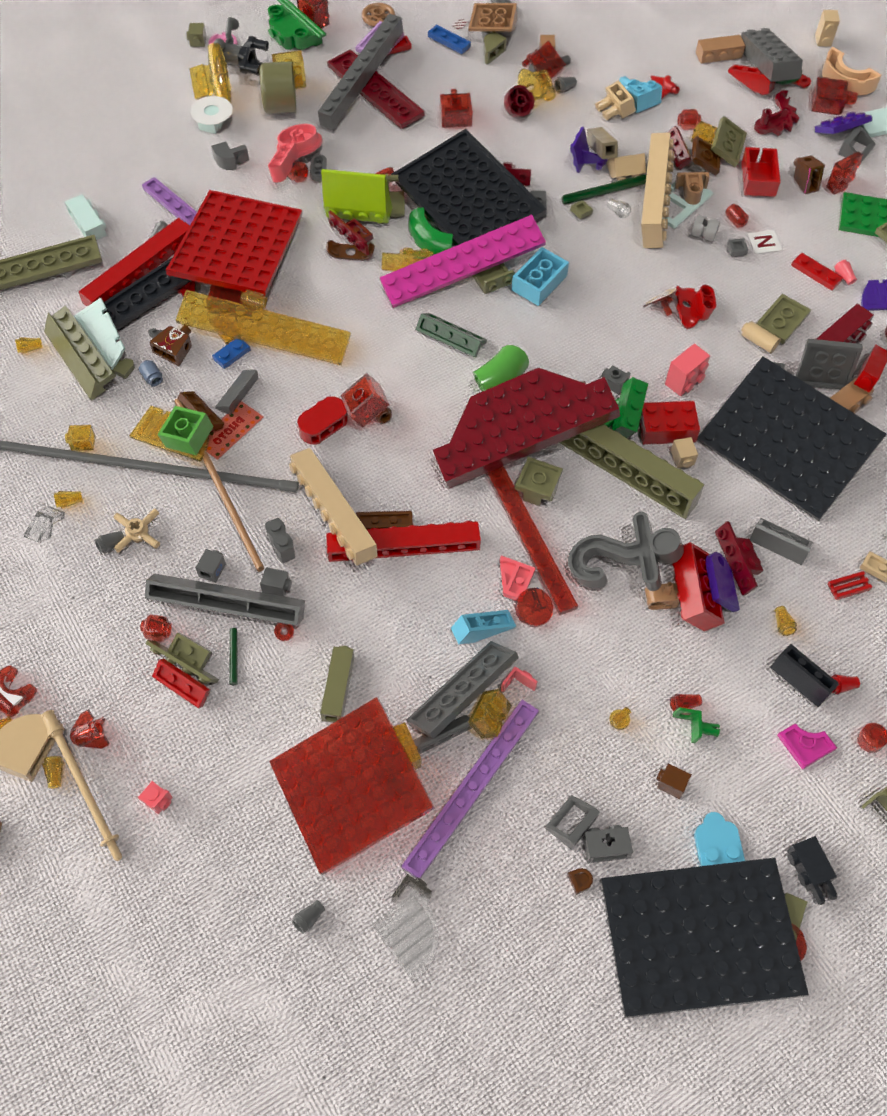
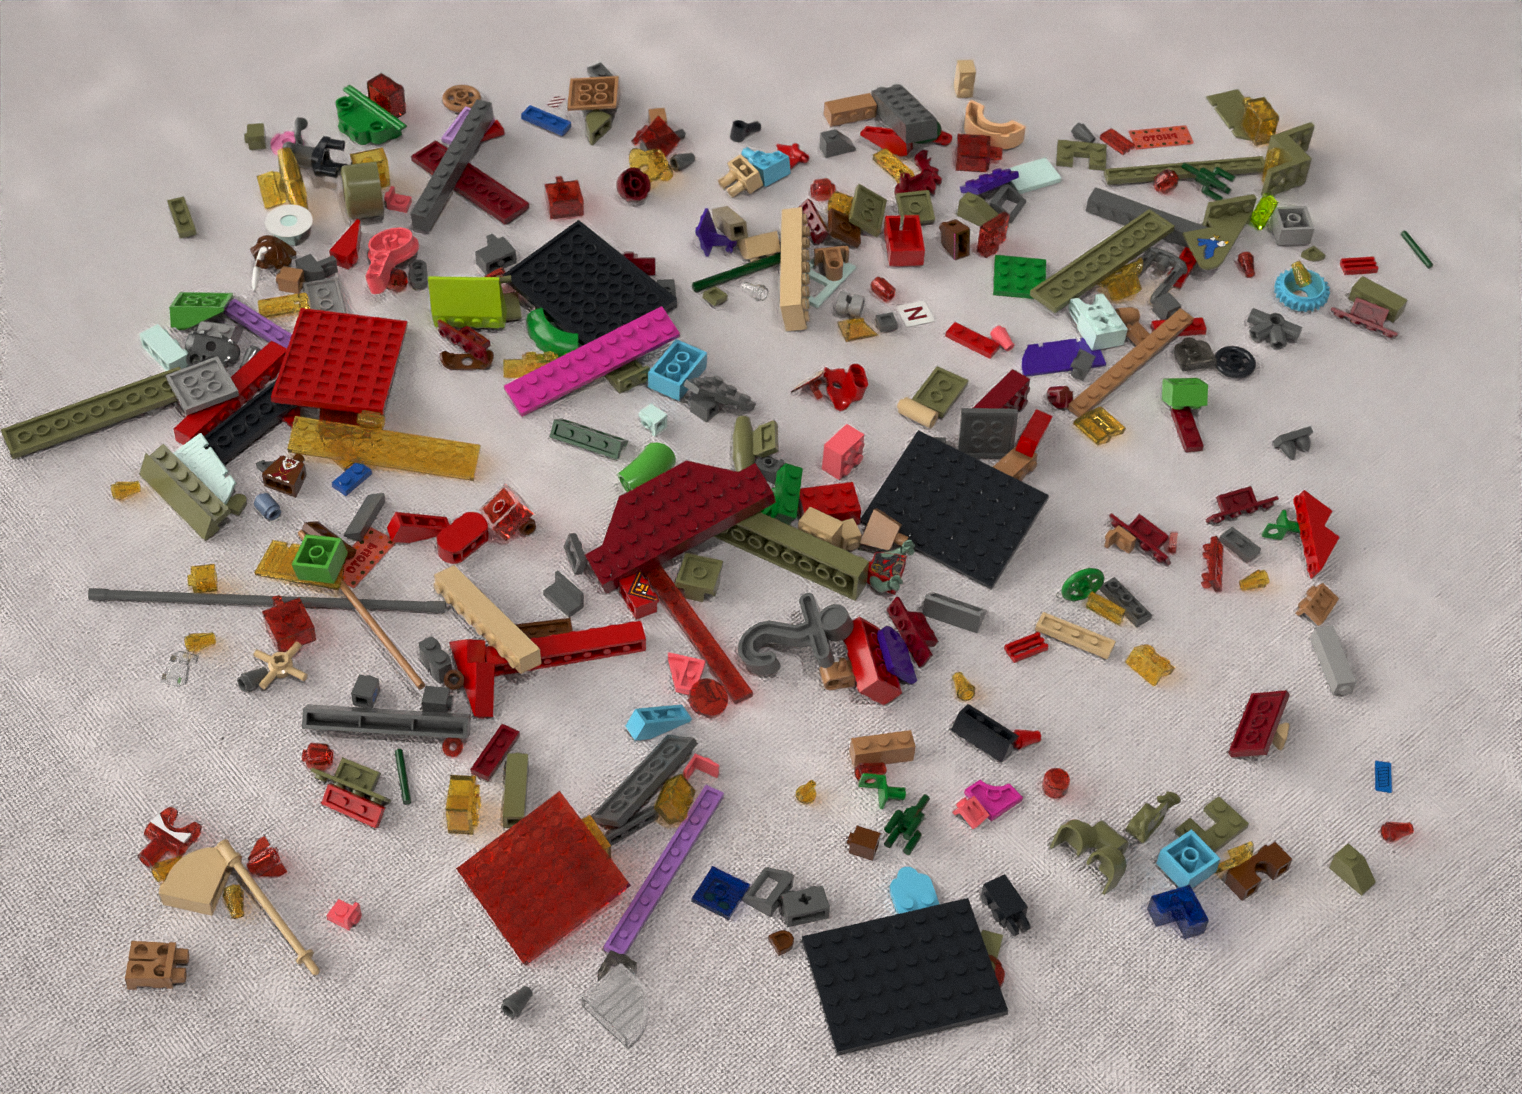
camera: 10 degrees left, 10 degrees down
(109, 254) = (202, 385): none -> light grey plate
(118, 181) = (194, 307): none -> bright green slope
(121, 100) = (181, 217): none -> olive plate
(134, 209) = (216, 329): none -> light grey slope
(137, 223) = (196, 345): none -> dark grey piece
(149, 490) = (288, 624): none -> clear red hinge
(190, 138) = (270, 254): none -> reddish brown helmet
(195, 186) = (283, 305): none -> clear yellow plate
(205, 164) = (290, 280): none -> medium nougat brick
(233, 180) = (325, 295): none -> light grey tile
(259, 138) = (347, 247): none -> red slope
(281, 406) = (415, 527): none -> red slope
(283, 696) = (463, 804): none -> clear yellow brick
(288, 564) = (453, 674): none -> reddish brown cone
(309, 101) = (396, 201): none -> coral bracket
(315, 561) = (477, 674): none -> red slope
(323, 641) = (495, 752): none -> dark red plate
(390, 155) = (495, 255): none -> dark grey hinge
(410, 487) = (565, 595): none -> dark grey panel
(425, 447) = (575, 554): none -> dark grey piece
(479, 494) = (638, 595): none -> red brick
(512, 321) = (653, 419): none -> light aqua brick
(524, 817) = (720, 893): none -> clear blue tile
(561, 312) = (704, 407): none -> dark grey brick
(578, 300) = (720, 391): none -> dark grey plate
(602, 354) = (752, 444): none -> olive plate
(622, 59) = (741, 129): none -> black pin
(660, 443) = (821, 526): none -> tan slope
(700, 680) = (885, 748): none -> medium nougat brick
(703, 78) = (835, 143): none -> dark grey slope
(708, 251) = (855, 329): none -> clear yellow slope
(719, 454) = (882, 531): none -> medium nougat torso
(719, 491) = (888, 567): none -> torso
(719, 764) = (907, 824): none -> dark green plant
(753, 101) = (891, 164): none -> clear yellow plate
(773, 138) = (916, 204): none -> olive hinge
(784, 758) = (971, 811): none -> coral bracket
(828, 148) = (975, 209): none -> olive slope

